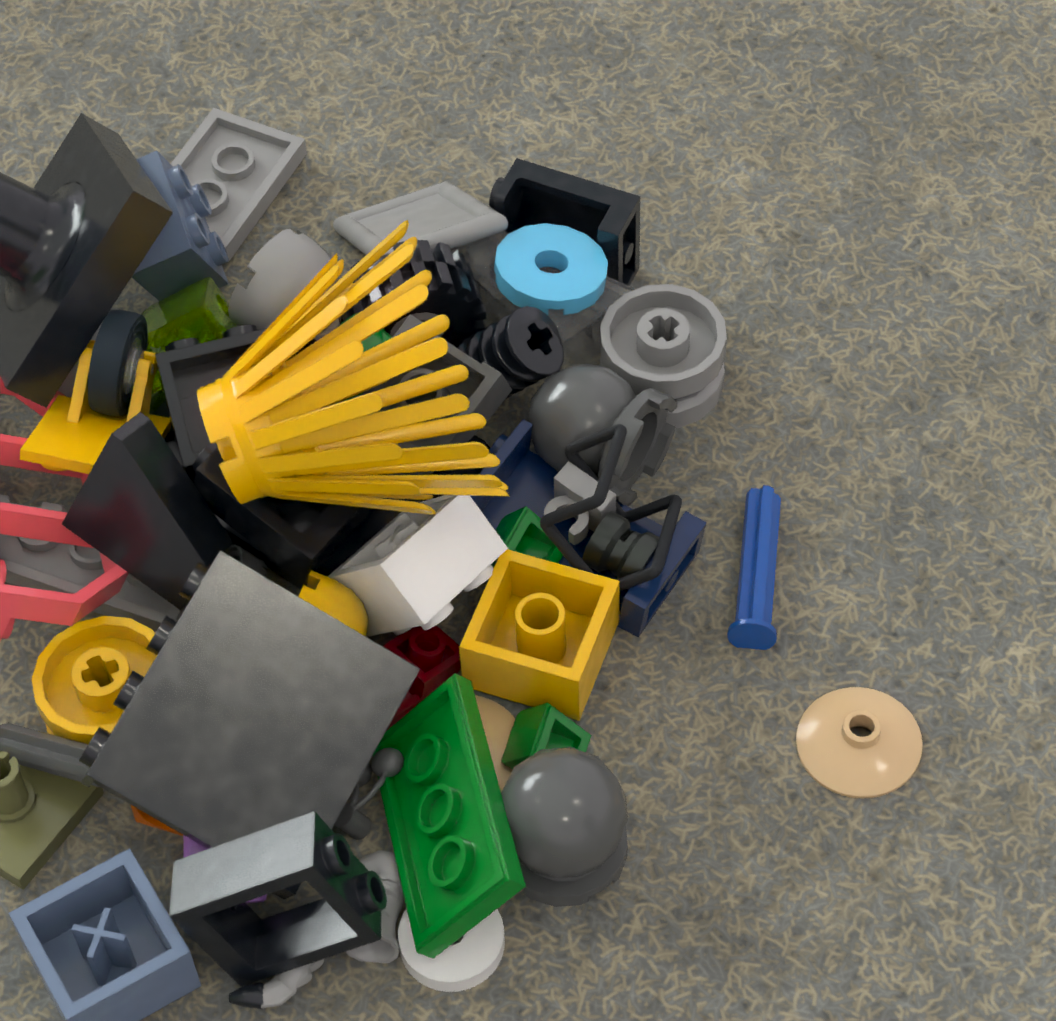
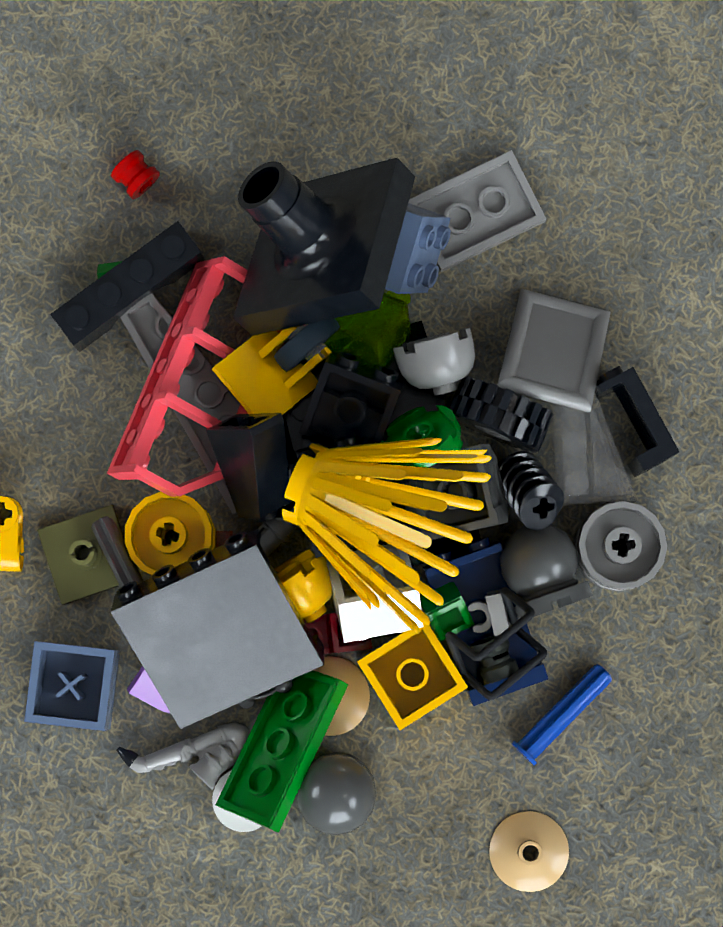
camera: 40 degrees right, 30 degrees up
(216, 883) = (163, 737): black window -> none
(542, 729) = (369, 732): green slope -> none
(553, 246) = (616, 451): medium azure tile -> none

